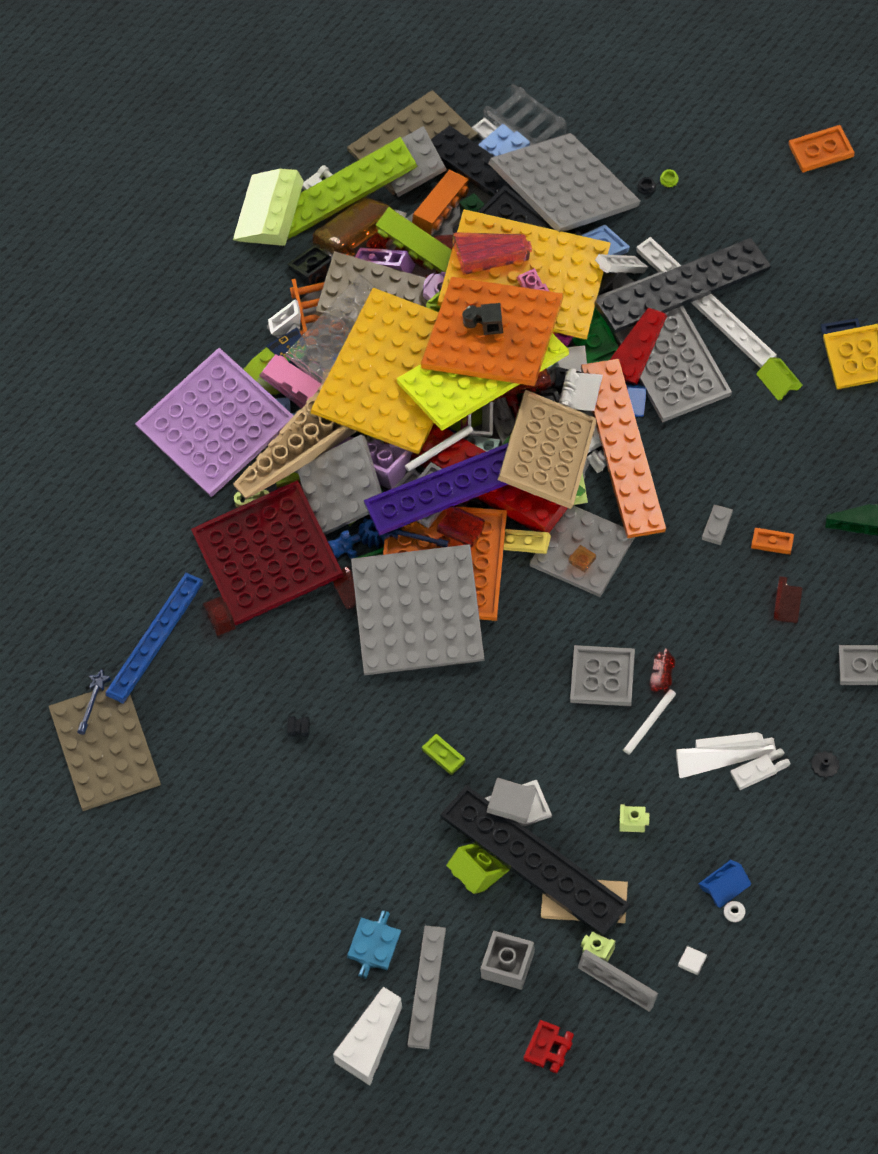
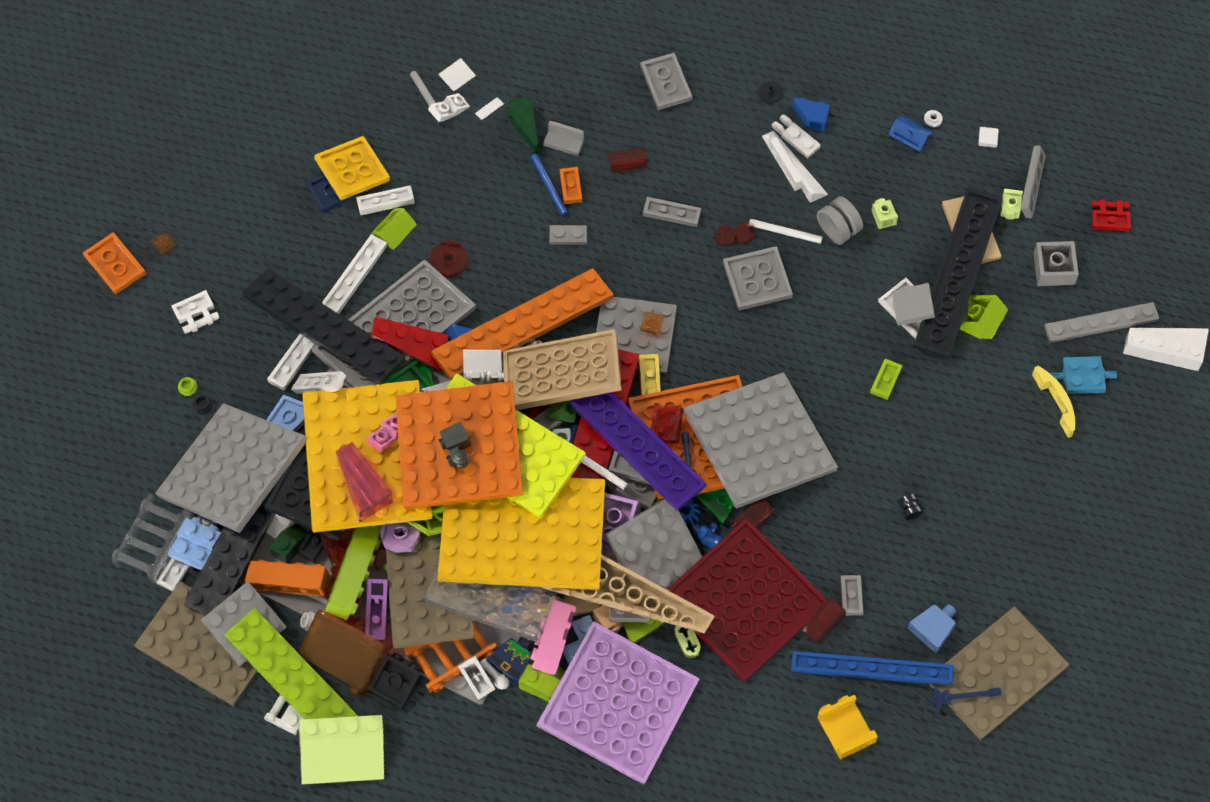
camera: 115 degrees left, 5 degrees up
(111, 600) = (846, 727): none -> yellow panel
(170, 703) = (934, 626): none -> medium blue torso
(233, 645) = (851, 595): none -> light grey plate
(354, 908) = (1046, 380): none -> light yellow slope
(634, 764) = (840, 220): none -> light grey wheel
(708, 622) = (672, 212): none -> light grey plate
(722, 423) = (446, 249): none -> clear red plate
(750, 198) = (193, 307): none -> white plate
(779, 789) = (811, 113): none -> blue slope
(783, 524) = (548, 183): none -> blue bar
(812, 377) = (385, 200): none -> white plate
(829, 550) = (564, 138): none -> light grey panel
(830, 192) = (163, 243): none -> clear orange plate

